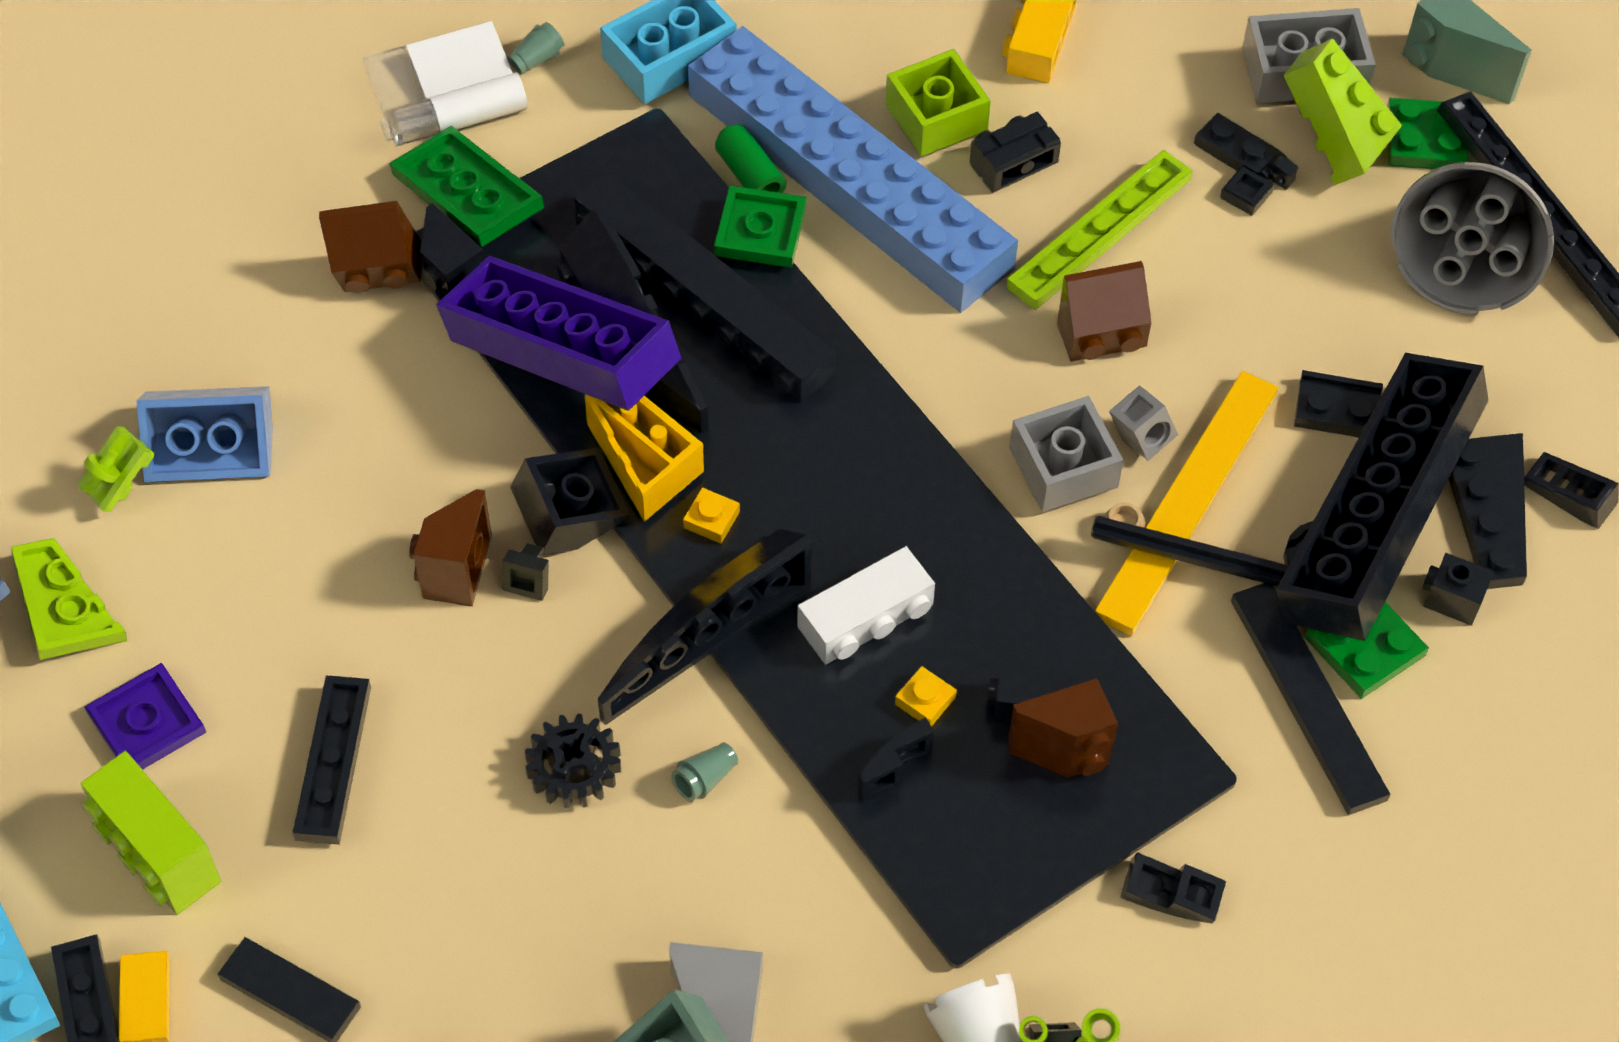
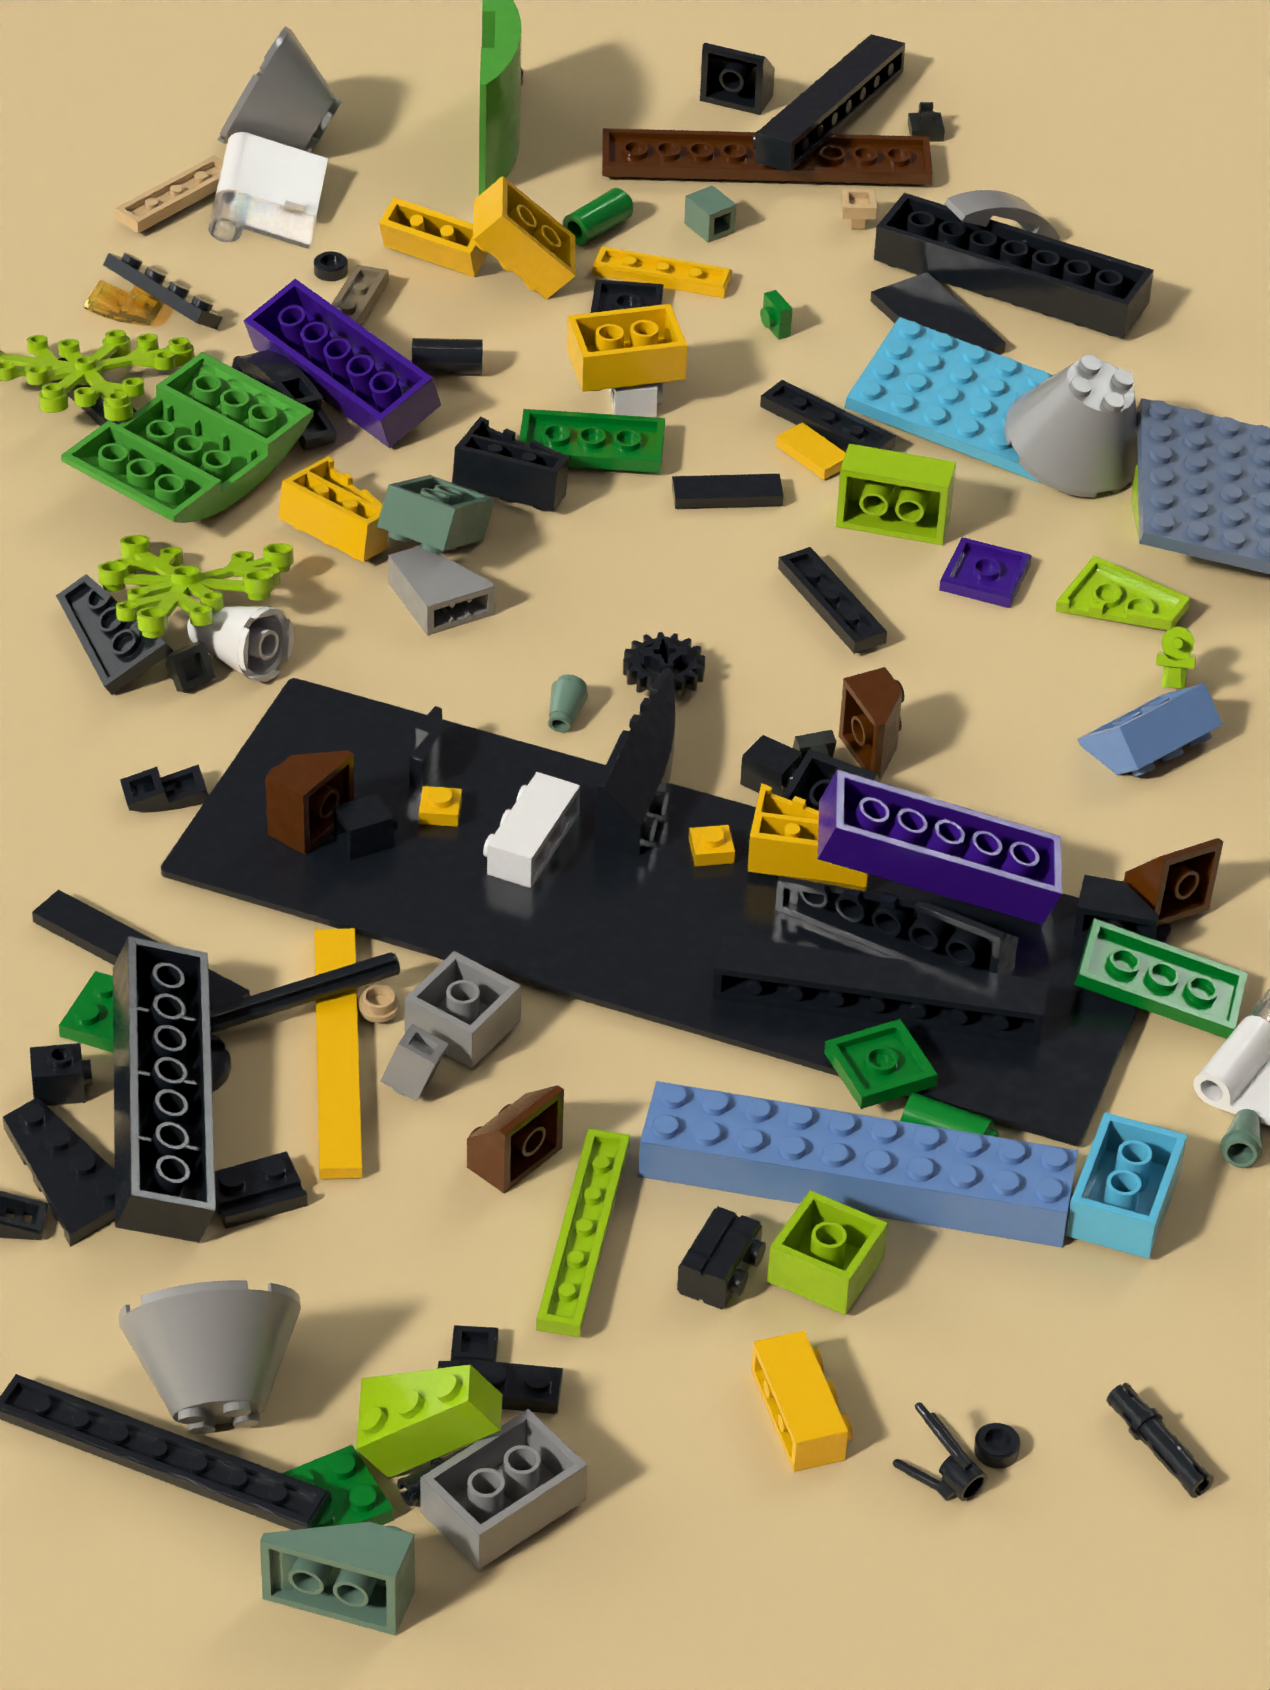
camera: 145 degrees right, 15 degrees down
(581, 576) = (769, 764): none -> black brick

